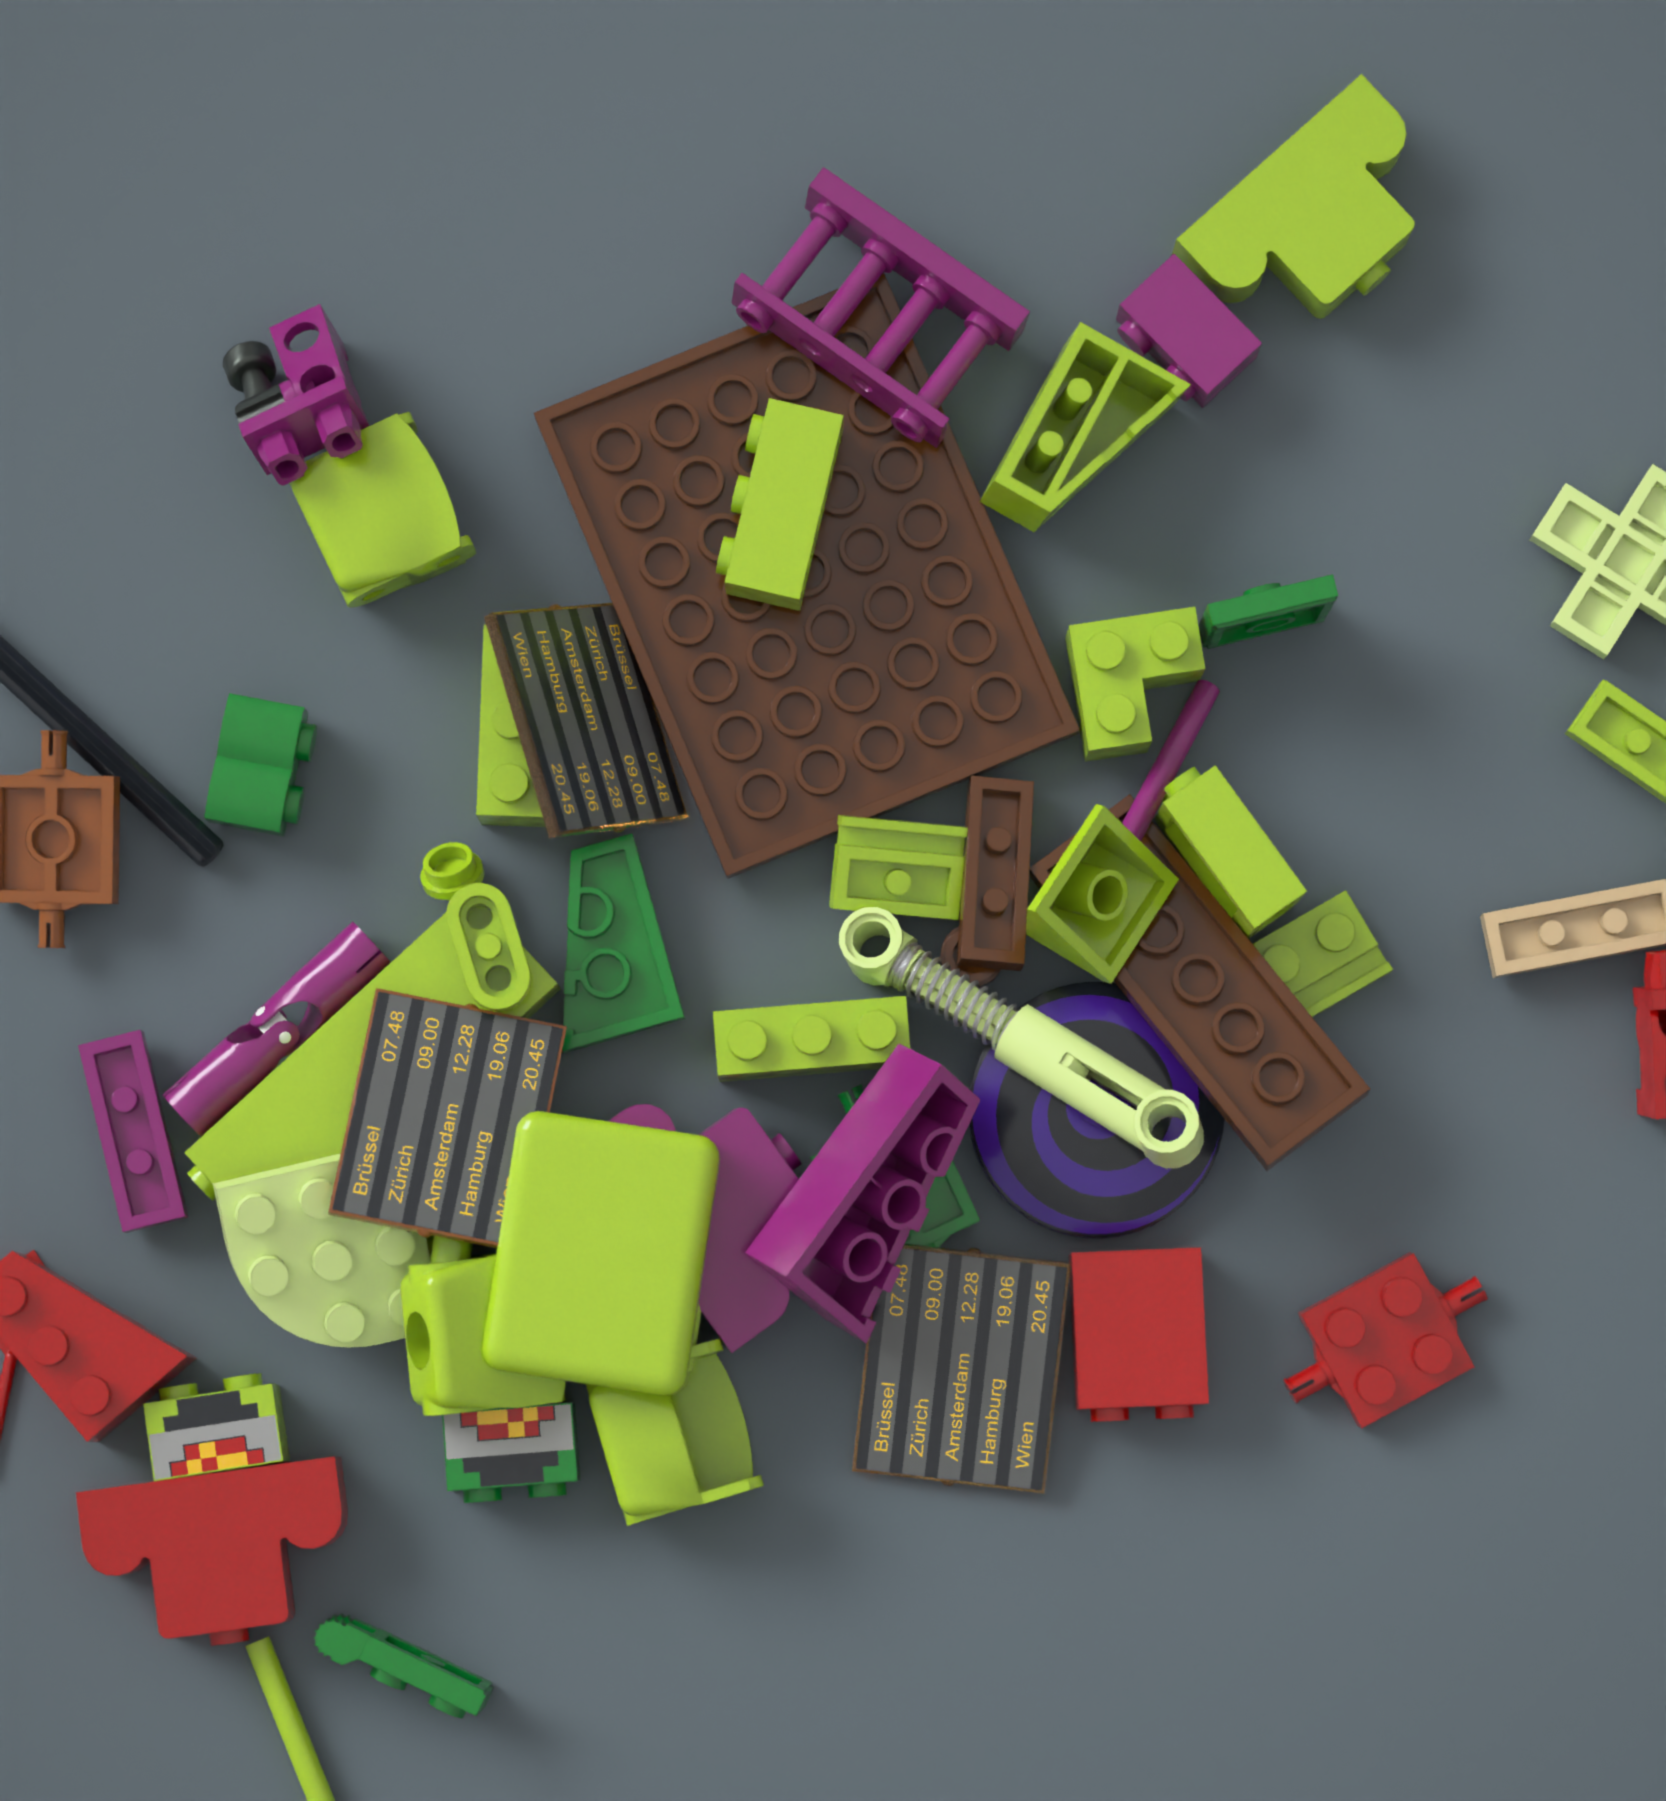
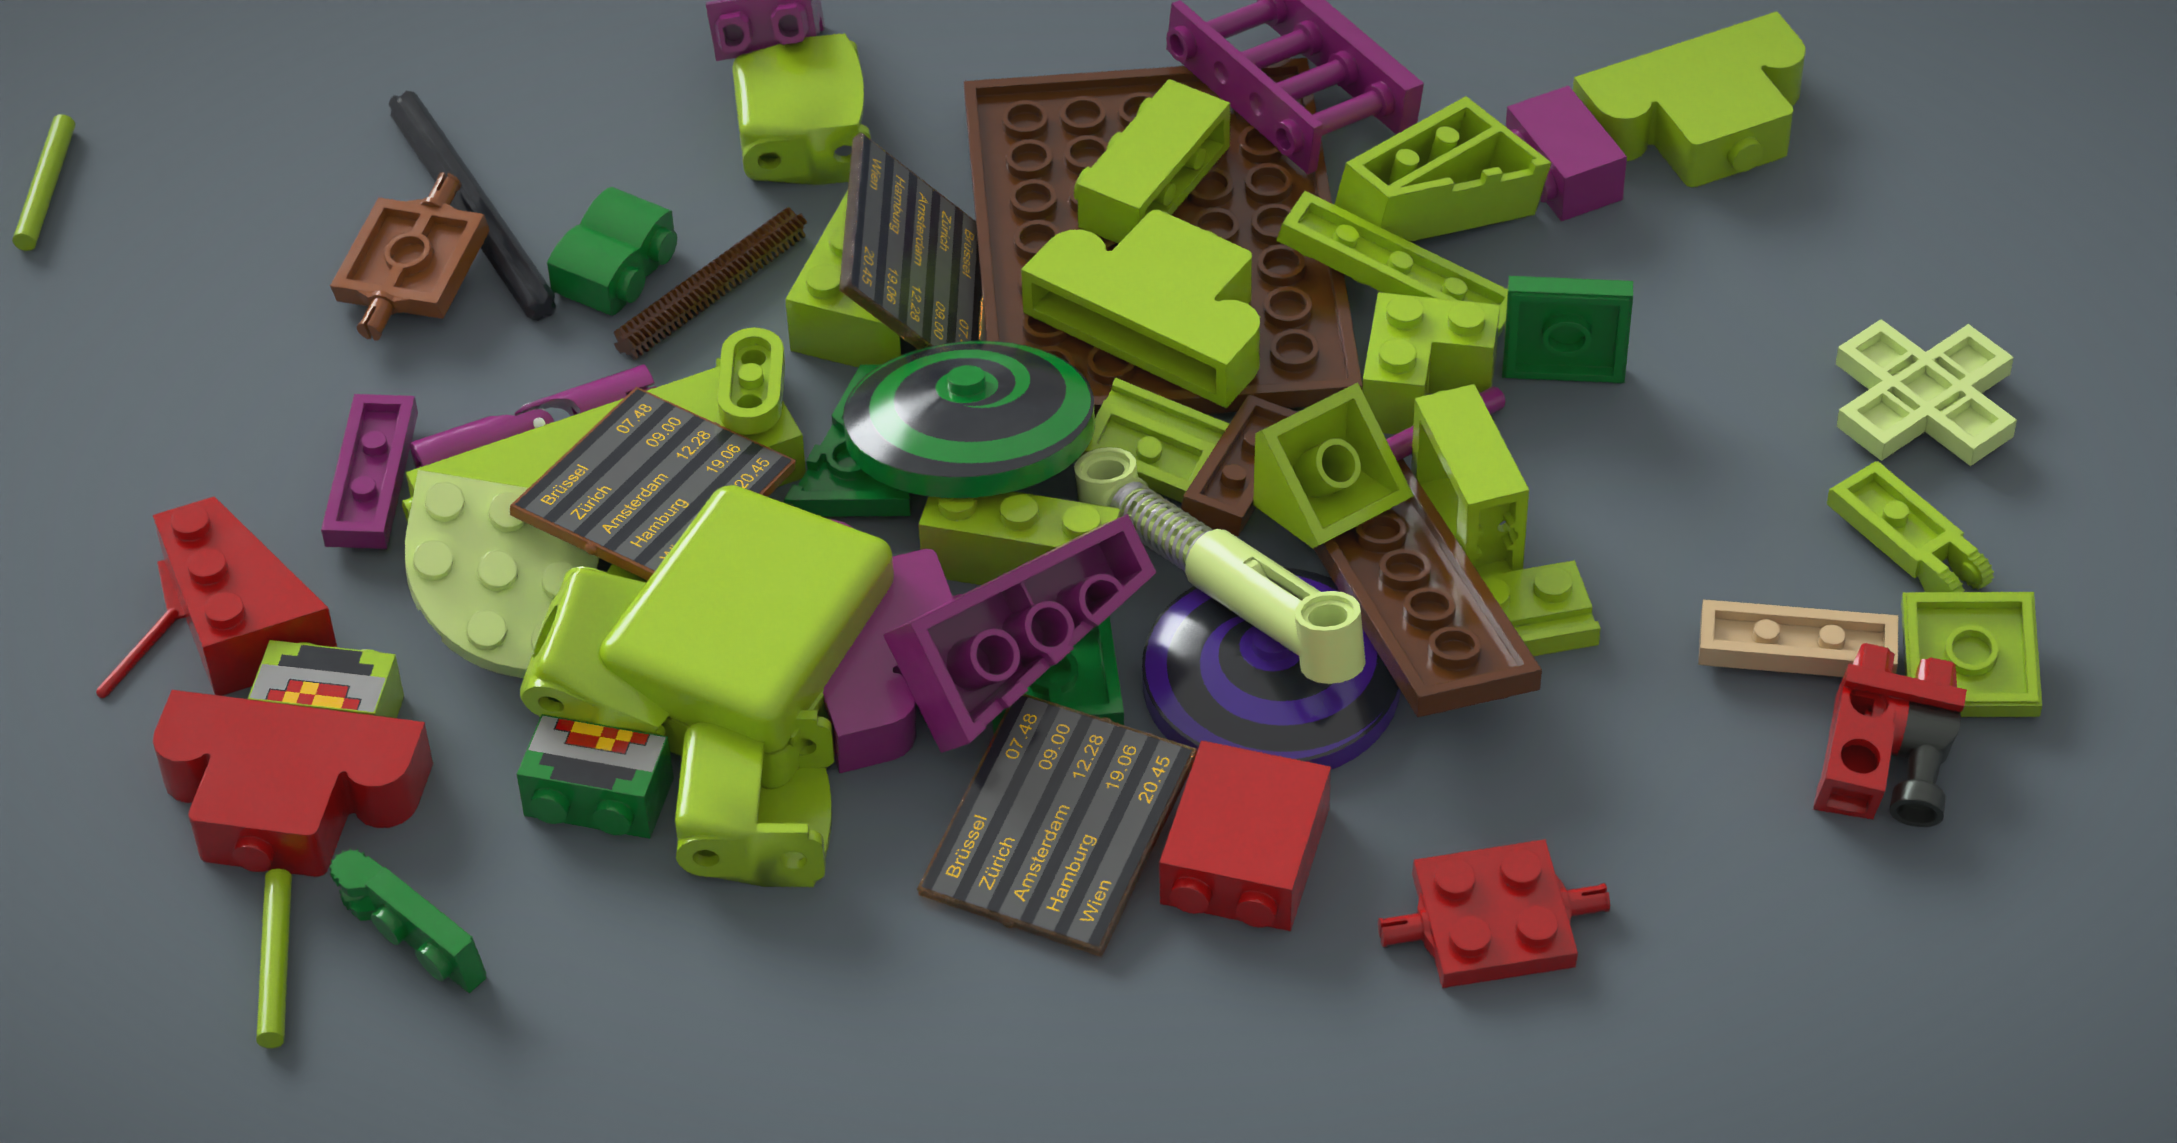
camera: 20 degrees right, 35 degrees down
(370, 767) = (709, 283): none -> reddish brown axle
(719, 923) = (969, 419): none -> dish
(850, 699) = (1158, 300): none -> lime brick
(1069, 563) = (1381, 257): none -> lime plate

